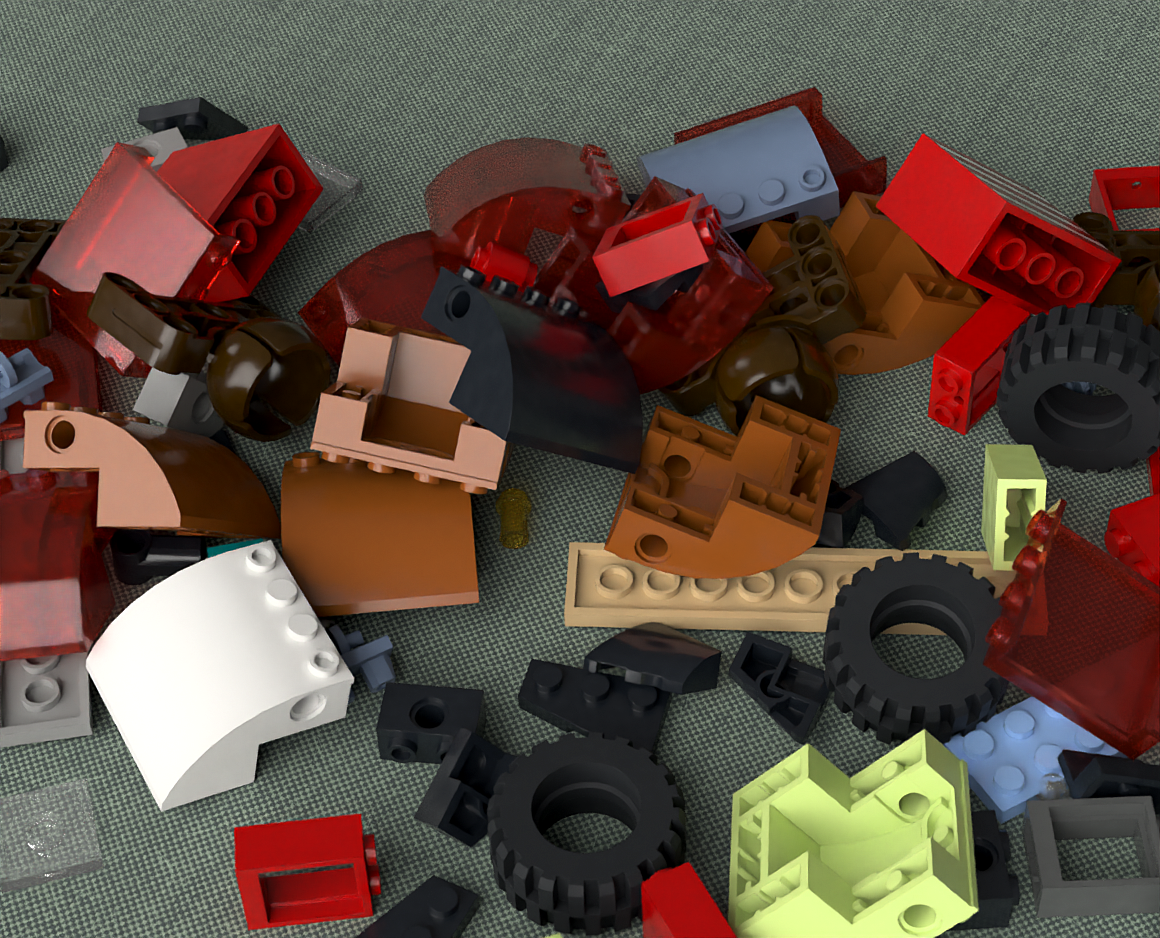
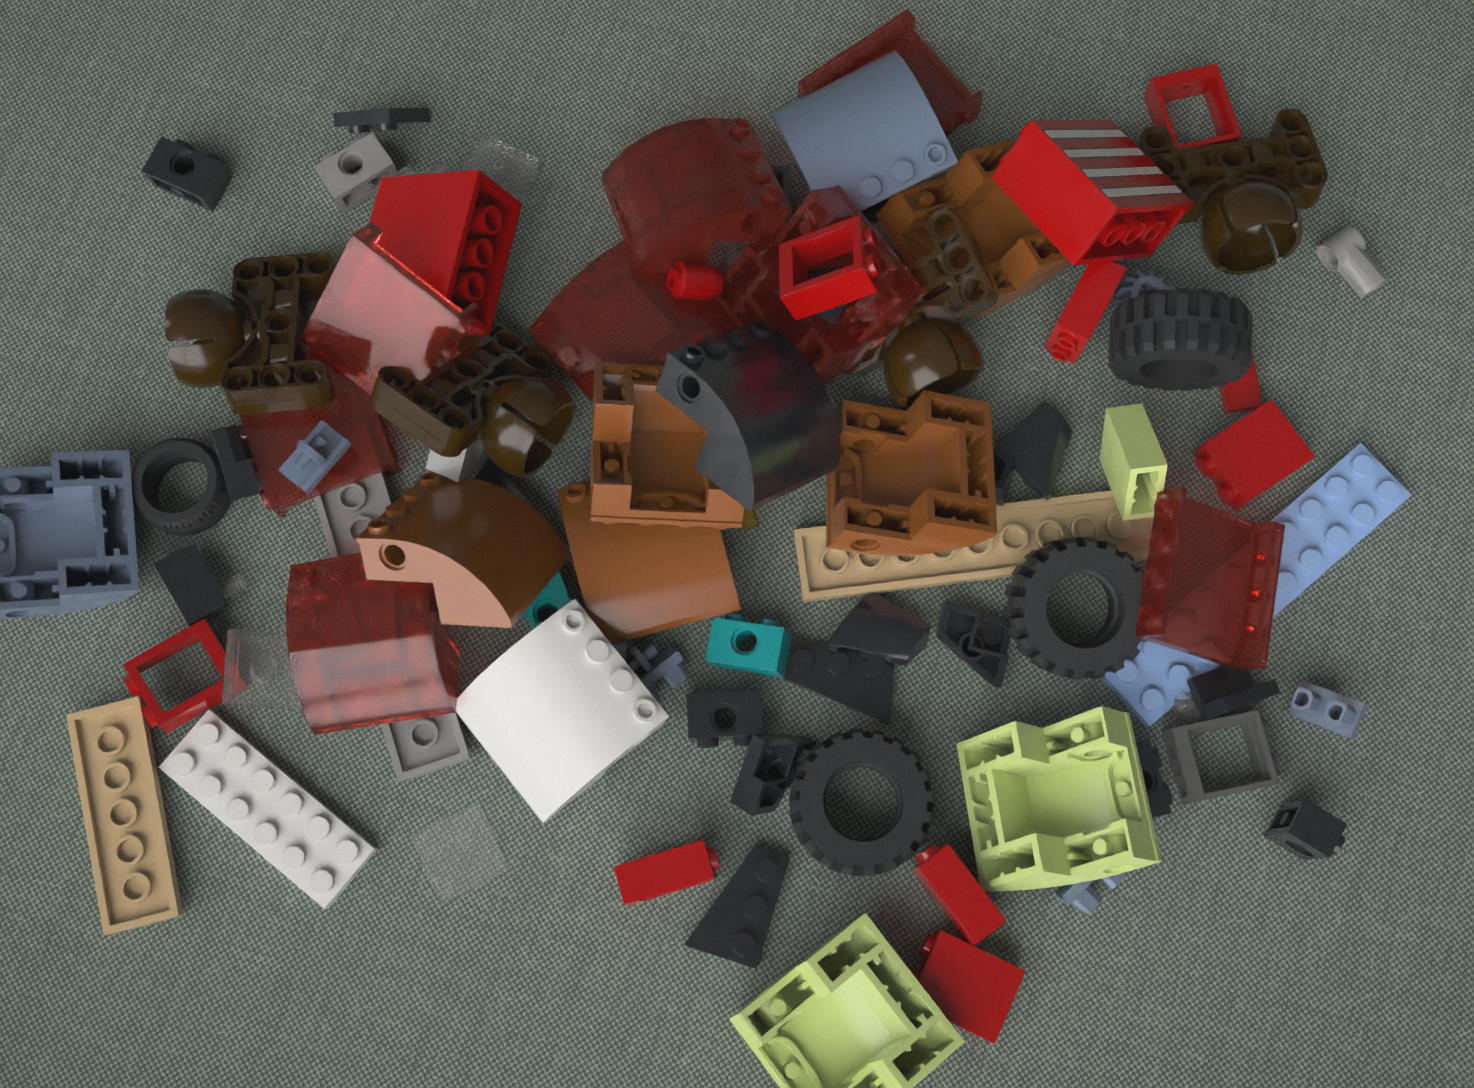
camera: 10 degrees left, 30 degrees up
(481, 651) = (766, 658): none -> teal brick

